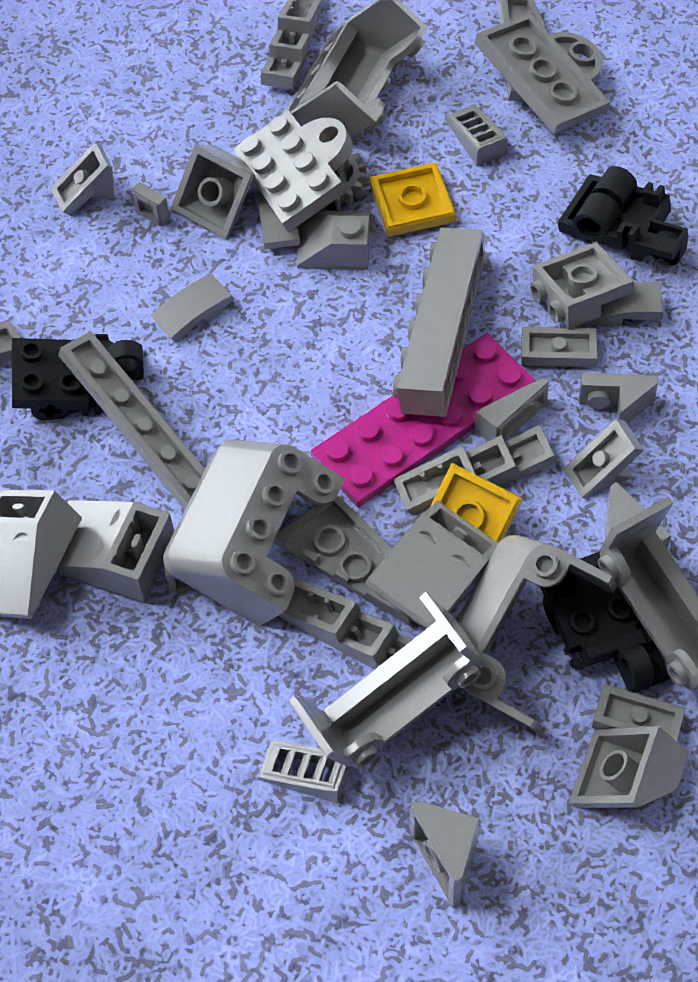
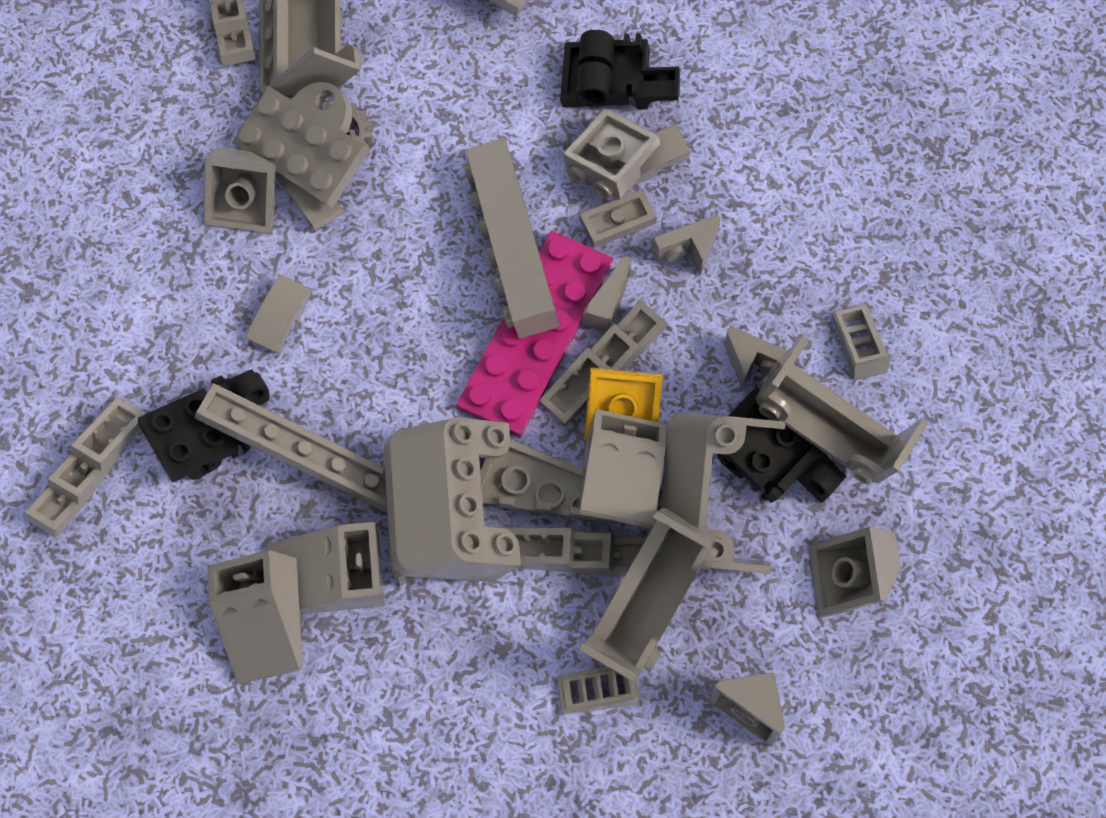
camera: 30 degrees left, 10 degrees up
(87, 176) = (112, 230): light grey slope -> none
(150, 204) = (186, 229): light grey tile -> none
(335, 240) = (375, 195): light grey slope -> none
(412, 199) = (421, 128): yellow plate -> none
(482, 151) = (455, 58): light grey slope -> none
(604, 460) = (707, 308): light grey slope -> none
(628, 709) = (837, 518): light grey plate -> none

